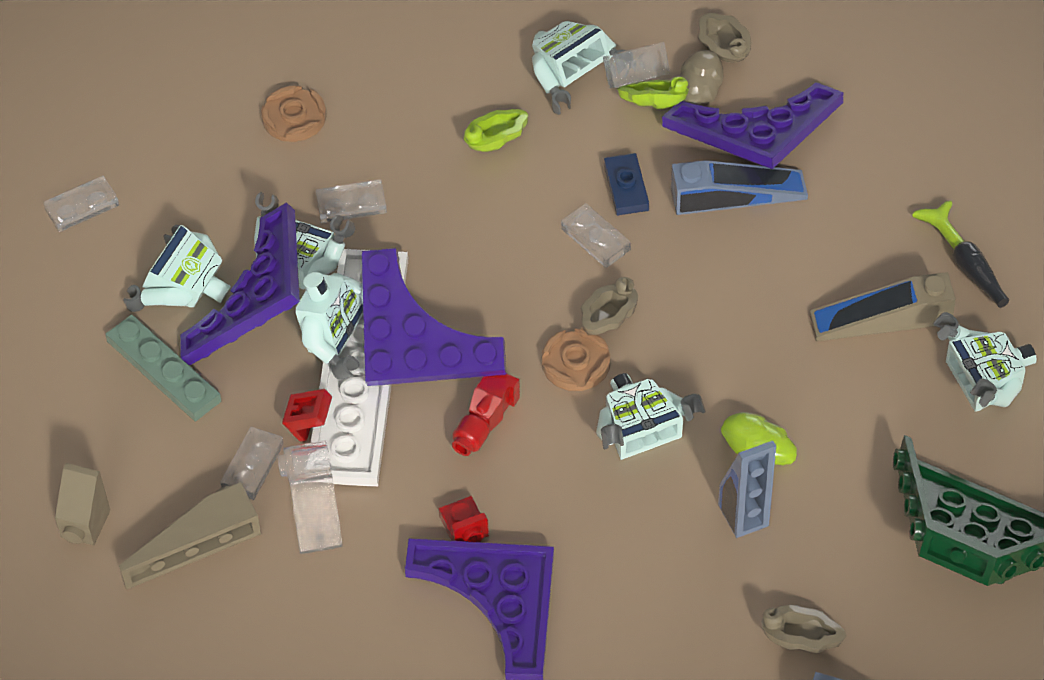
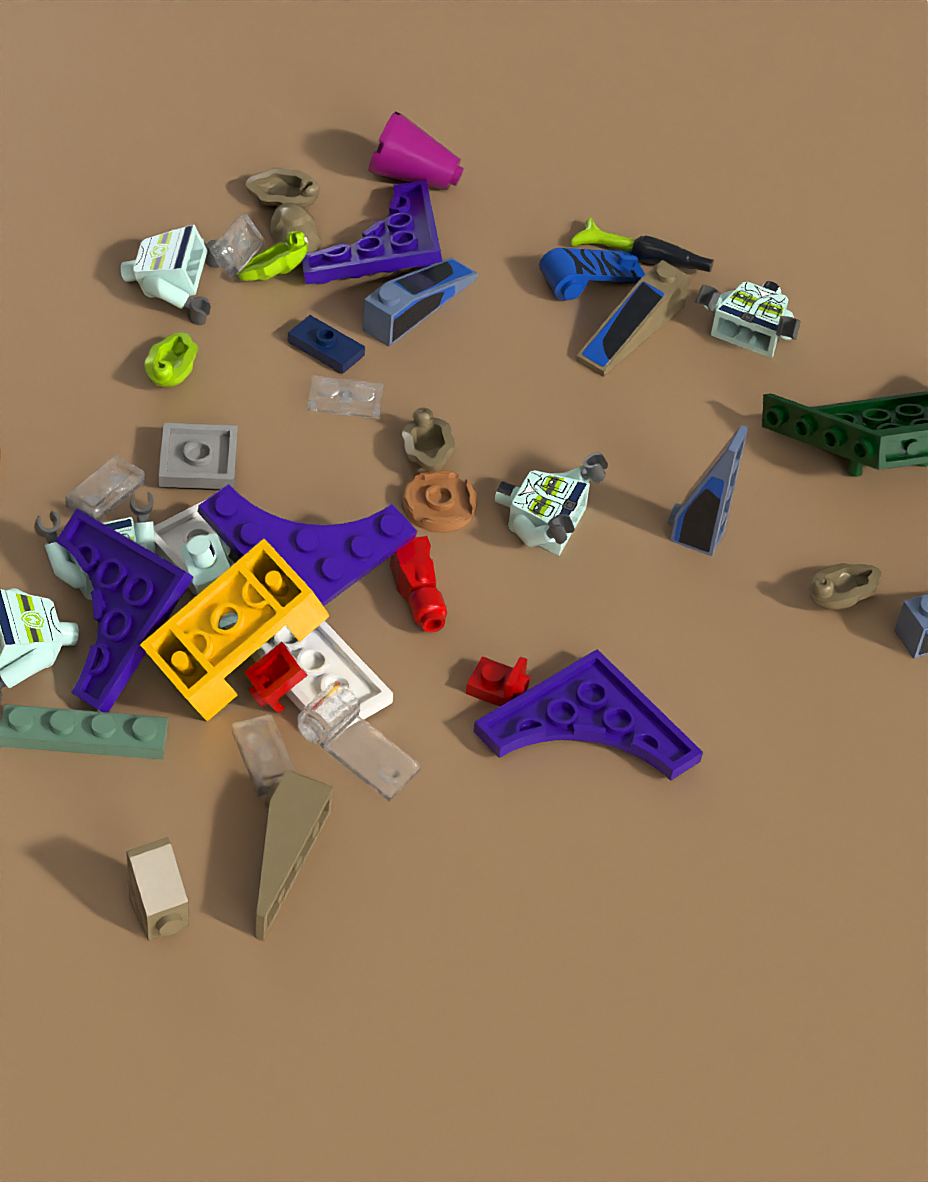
camera: 50 degrees left, 5 degrees down
(329, 342) = (200, 654): none -> yellow plate
(438, 215) = (198, 456): none -> light grey plate
(750, 430) = (649, 471): lime arm -> none
(851, 64) = (414, 155): none -> magenta cone
(880, 234) = (571, 269): none -> blue door

